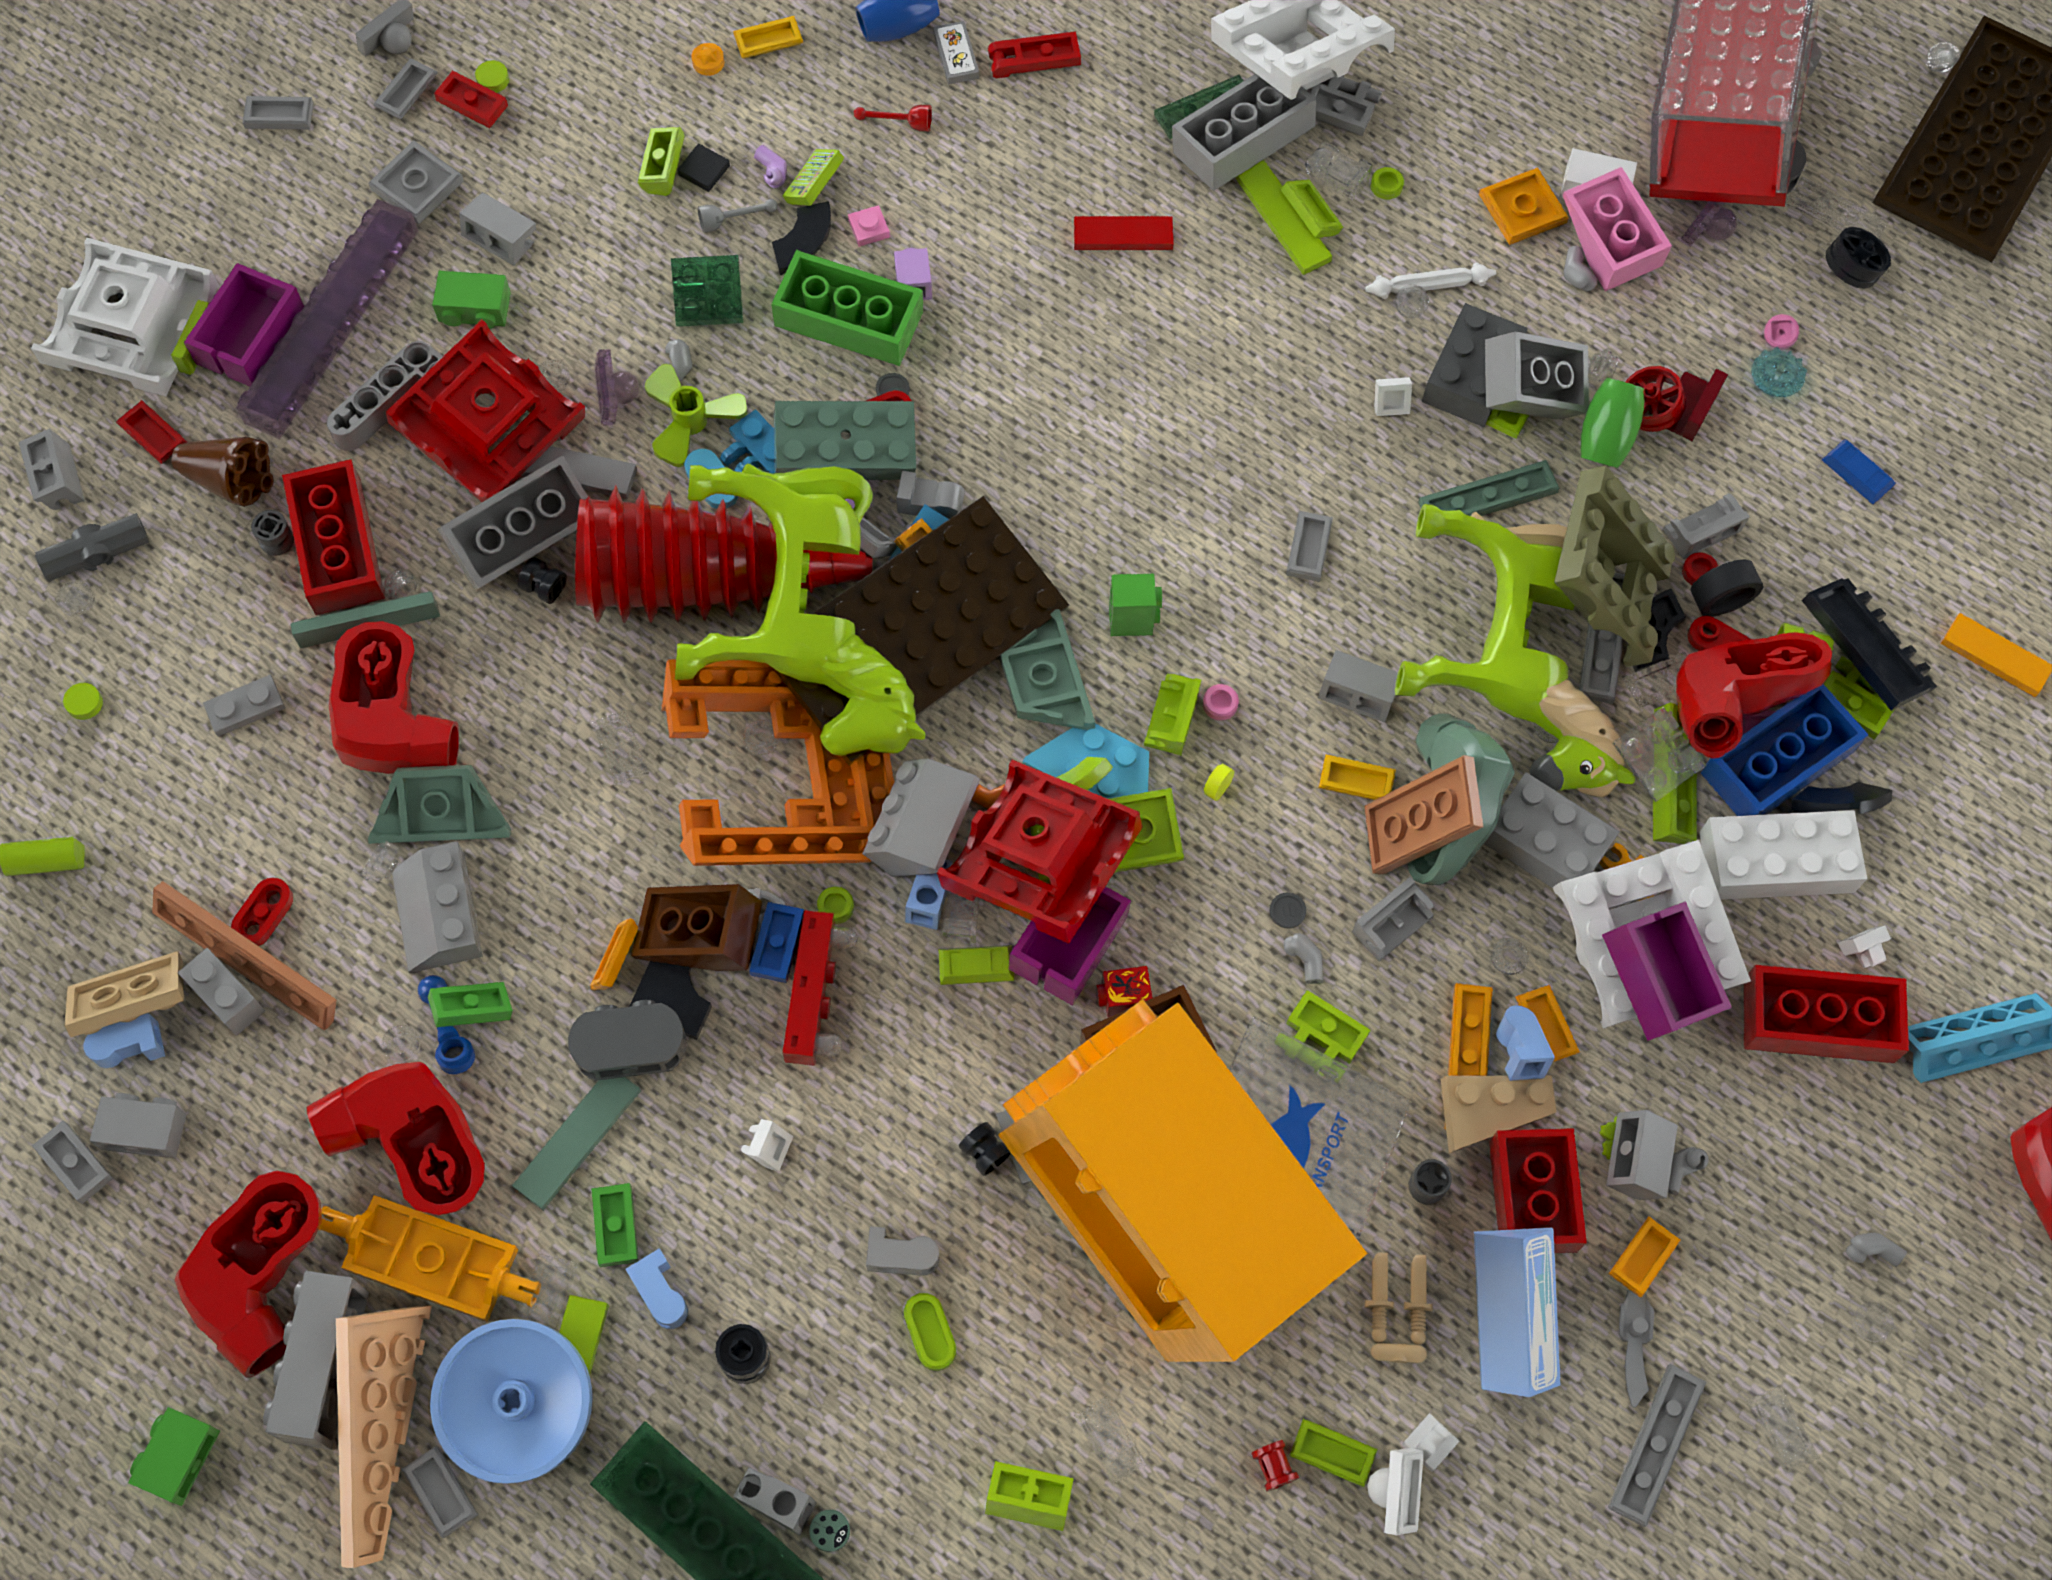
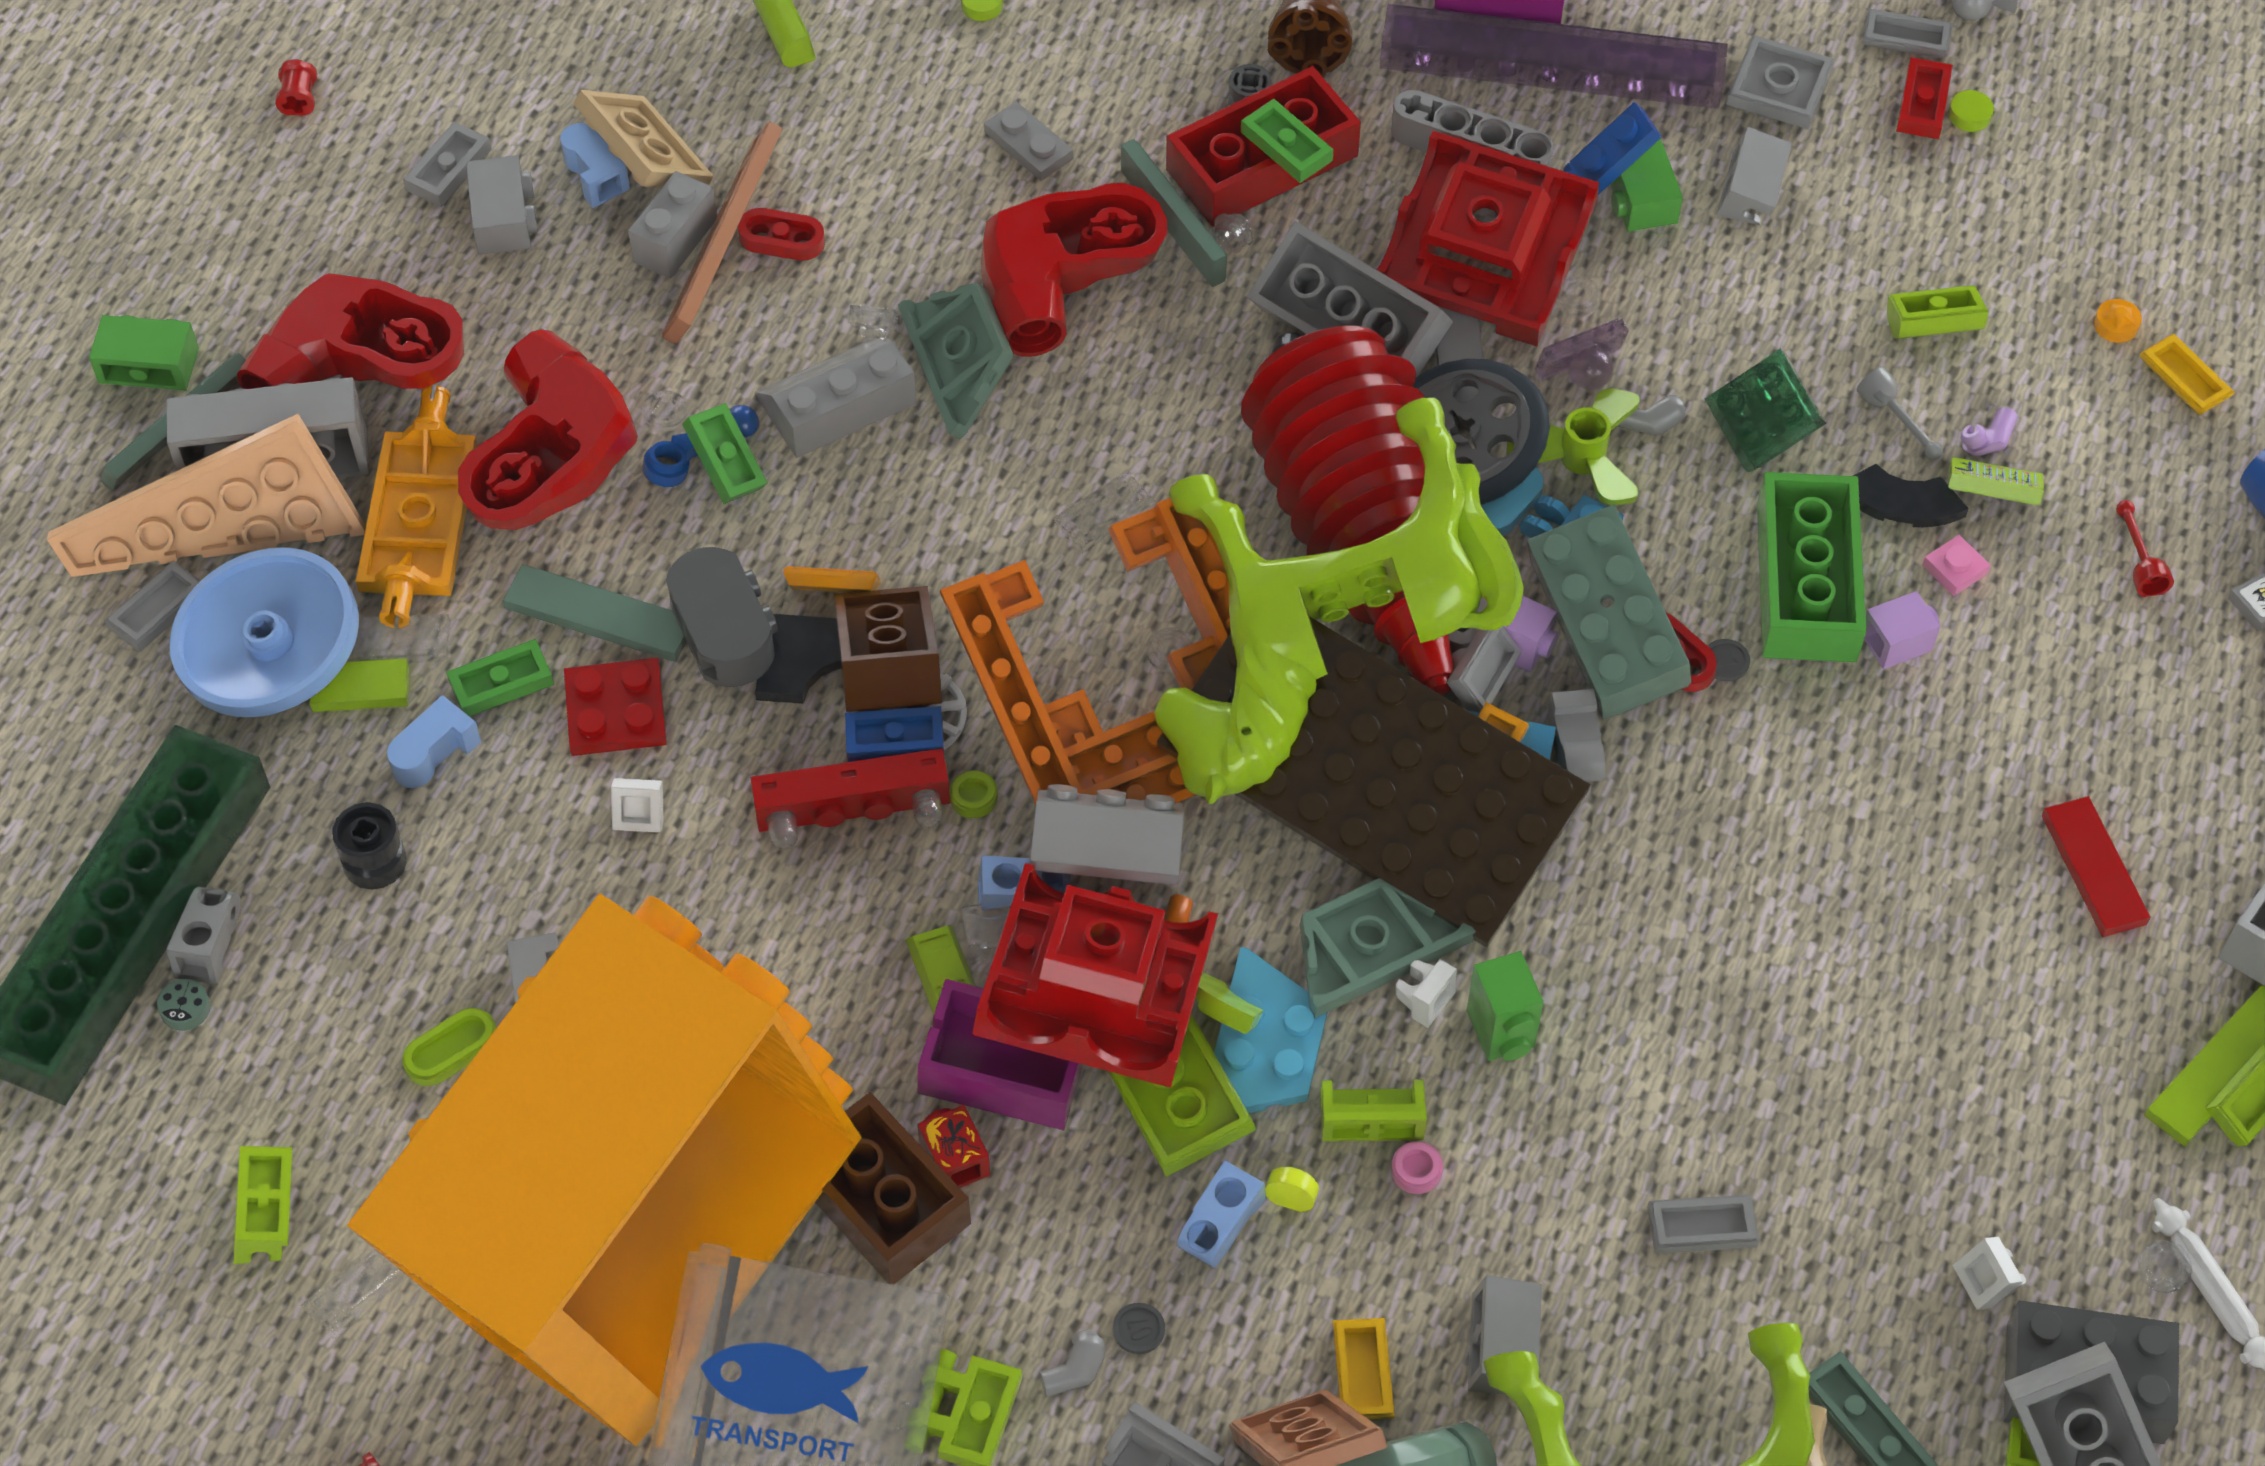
camera: 75 degrees right, 10 degrees down
(260, 1444) = (155, 436): none -> sand green tile
(355, 511) = (1286, 140): none -> bright green plate
(448, 304) = (1615, 147): none -> blue hinge
(624, 447) = (1496, 385): none -> dark grey wedge
(668, 1144) = (614, 706): none -> red plate
(703, 167) = (1952, 362): black piece -> none
(1097, 648) = (1433, 992): none -> white tile
(1226, 831) = (1221, 1214): none -> light blue leg

